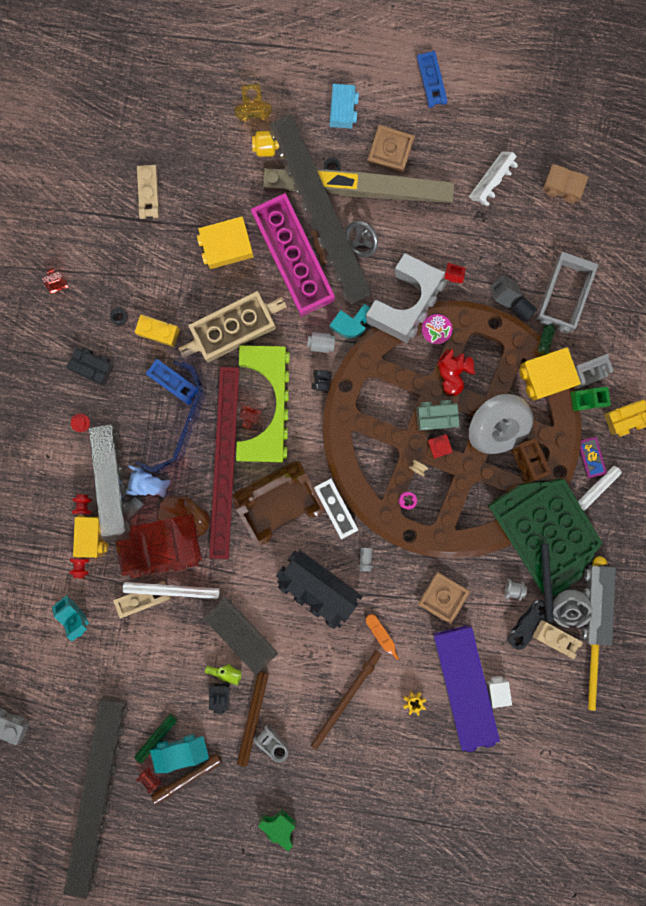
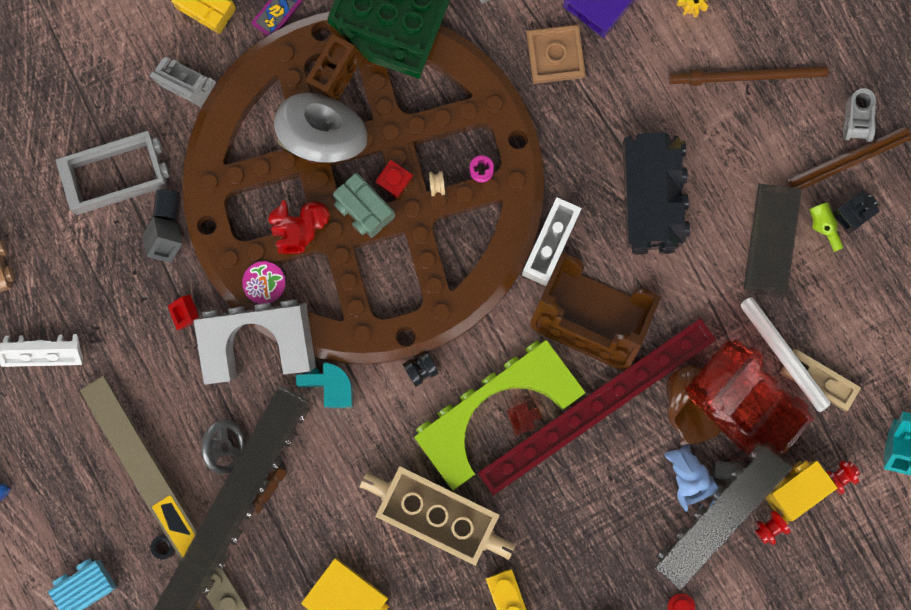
camera: 125 degrees left, 5 degrees down
(171, 381) = (552, 538): blue plate -> none
(191, 419) = (667, 477): clear blue windscreen -> none
(293, 255) = (301, 511): dark pink brick -> none
(321, 342) = (377, 402): light grey brick -> none
(366, 559) = (581, 168): light grey pin -> none
(381, 634) = (648, 91): orange piece -> none
(390, 148) = (91, 495): medium nougat plate -> none
(546, 340) = (185, 153): dark green axle -> none
(549, 374) = (222, 119): yellow brick -> none
(590, 399) = (214, 57): green brick -> none

